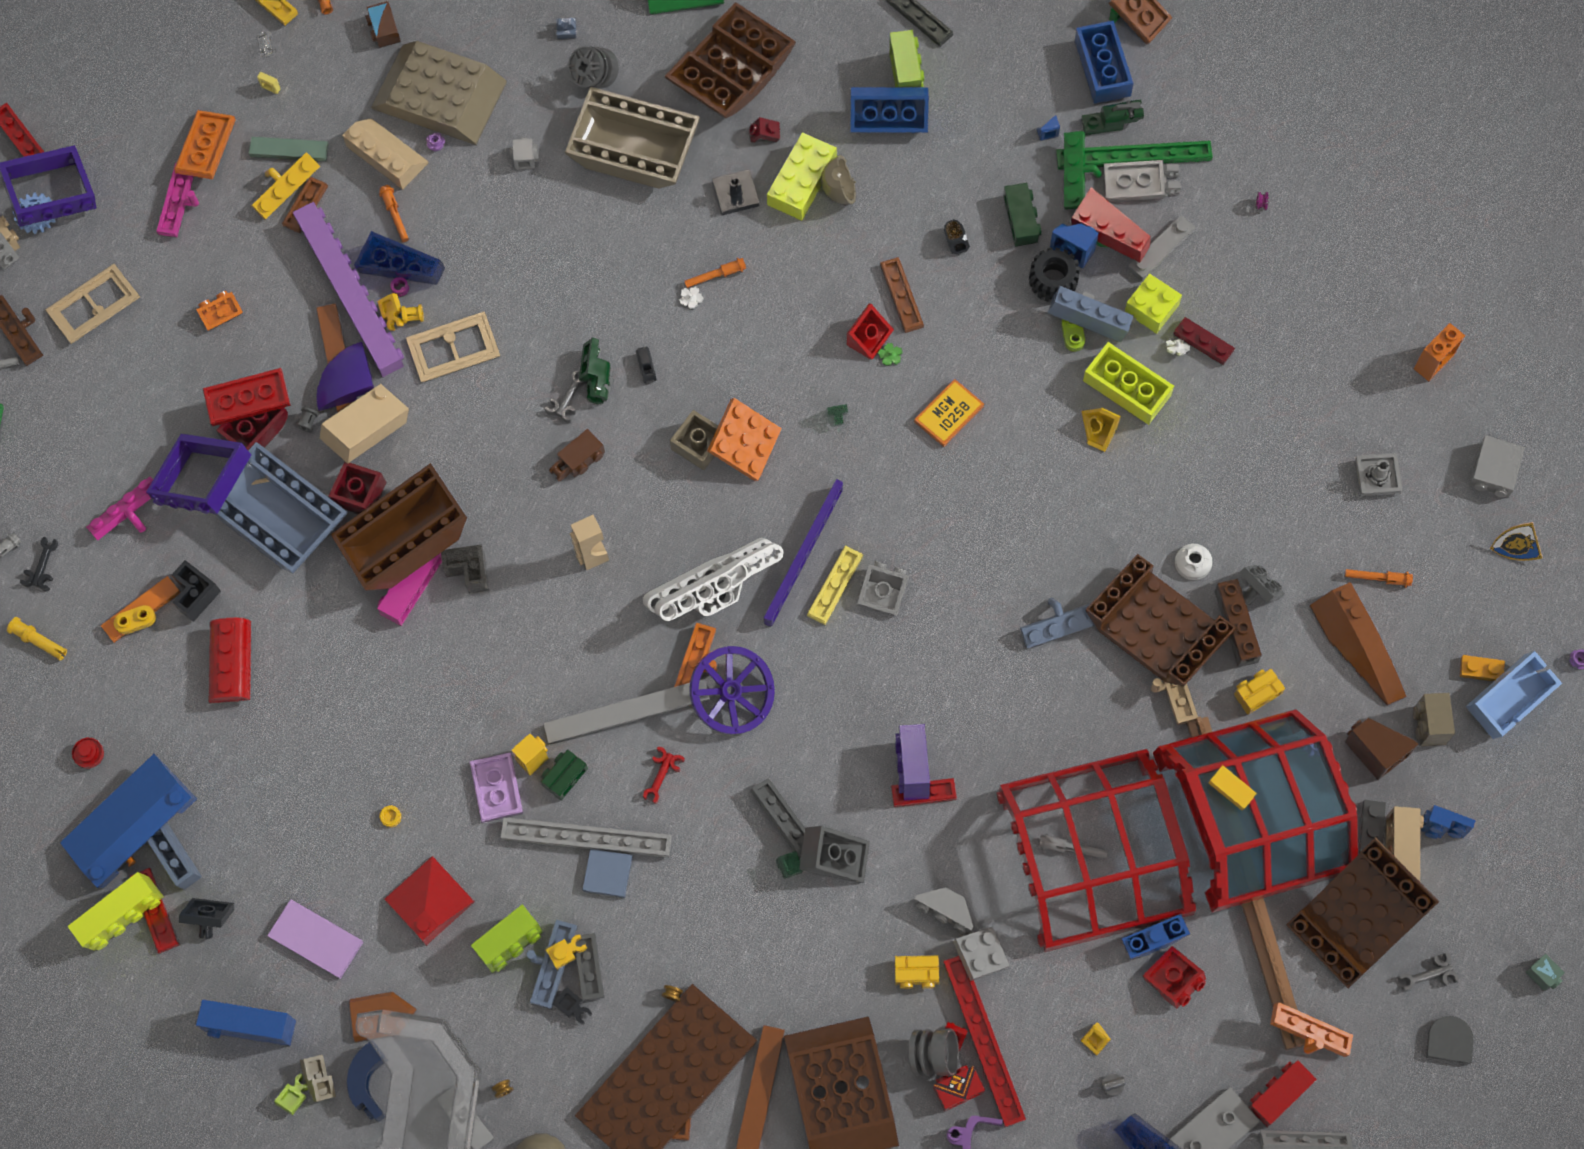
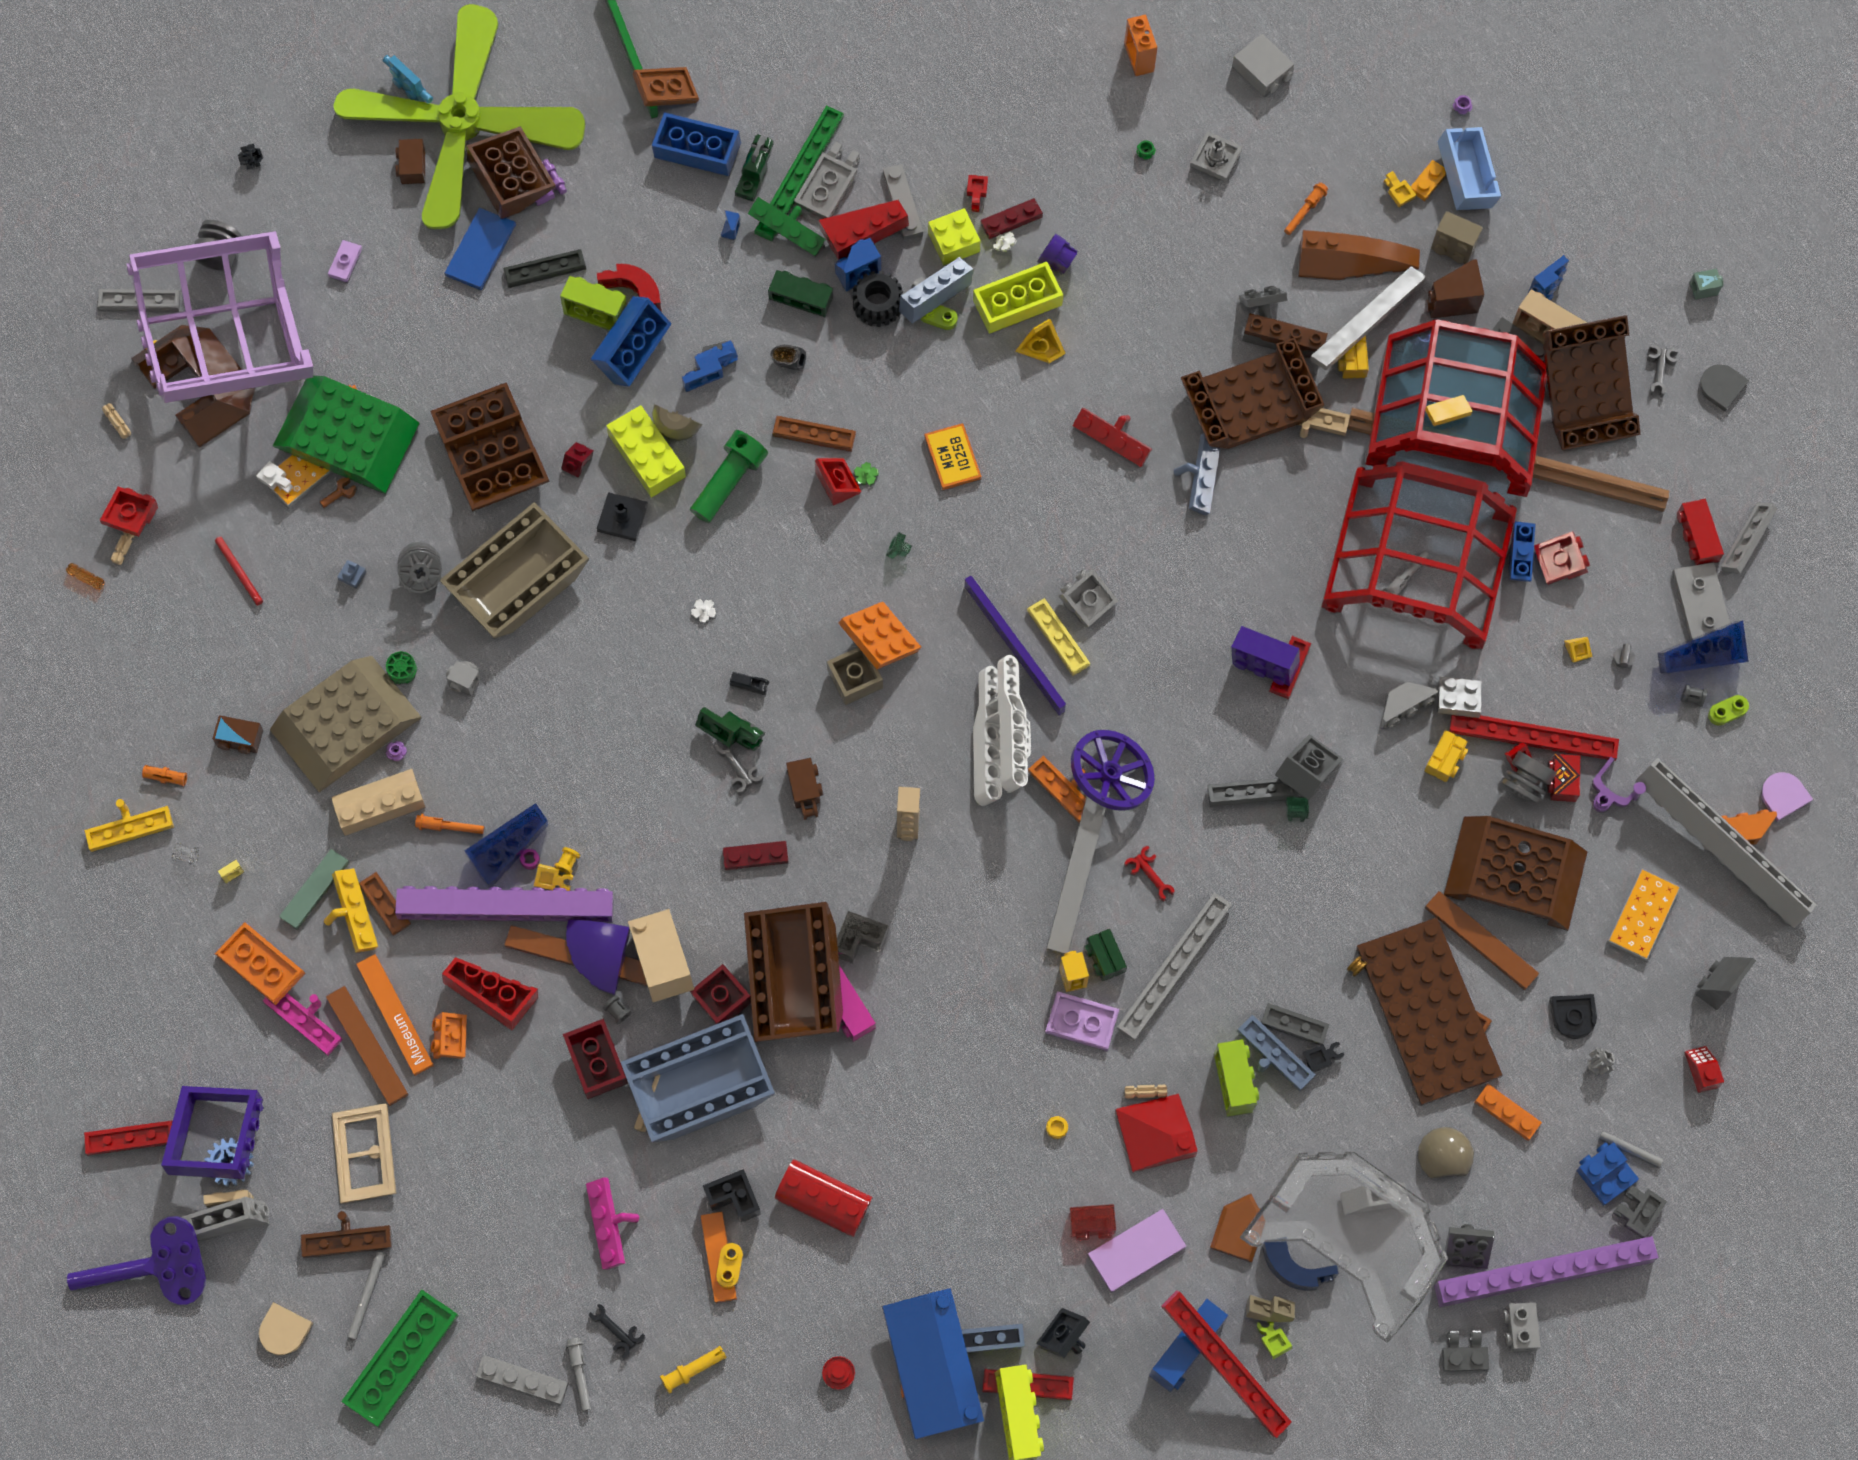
camera: 65 degrees left, 0 degrees up
(175, 461) = (597, 1107): dark purple window -> none
(181, 257) = (367, 1045): none -> dark orange tile
(217, 262) = (395, 1014): none -> orange tile
(237, 1060) = (1226, 1364): none -> red plate
(246, 397) = (569, 1048): red tile -> none
(267, 323) = (496, 995): none -> red wedge
(320, 887) = (1092, 1221): none -> clear red brick
(448, 332) = (602, 838): tan door -> none
(460, 872) = (1145, 1091): none -> tan axle
(499, 452) = (755, 855): none -> dark red plate
(502, 1088) = (1366, 1152): pearl gold bush -> none
(506, 106) = (401, 668): none -> green wheel
(562, 953) = (1272, 1036): yellow plate -> none
(607, 873) = (1216, 965): sand blue tile -> none
(726, 269) = (699, 552): orange pin -> none
(842, 247) = (743, 453): none -> green piece
(910, 182) = (709, 365): none -> blue plate
(946, 99) = (632, 278): none -> red arch
(1048, 530) = (1112, 436): none -> red plate
(1190, 393) = (1058, 254): none -> dark purple piece
(1191, 570) = (1207, 349): white piece -> none
(1212, 297) = (977, 188): none -> red plate
(1261, 201) = (910, 98): magenta bush -> none
(1301, 683) = (1368, 318): none -> tile
(1315, 1032) = (1663, 479): orange plate -> none
(1345, 408) = (1145, 145): none -> green plate
(1452, 648) = (1399, 191): none -> yellow plate
(1518, 543) = (1340, 88): shield -> none

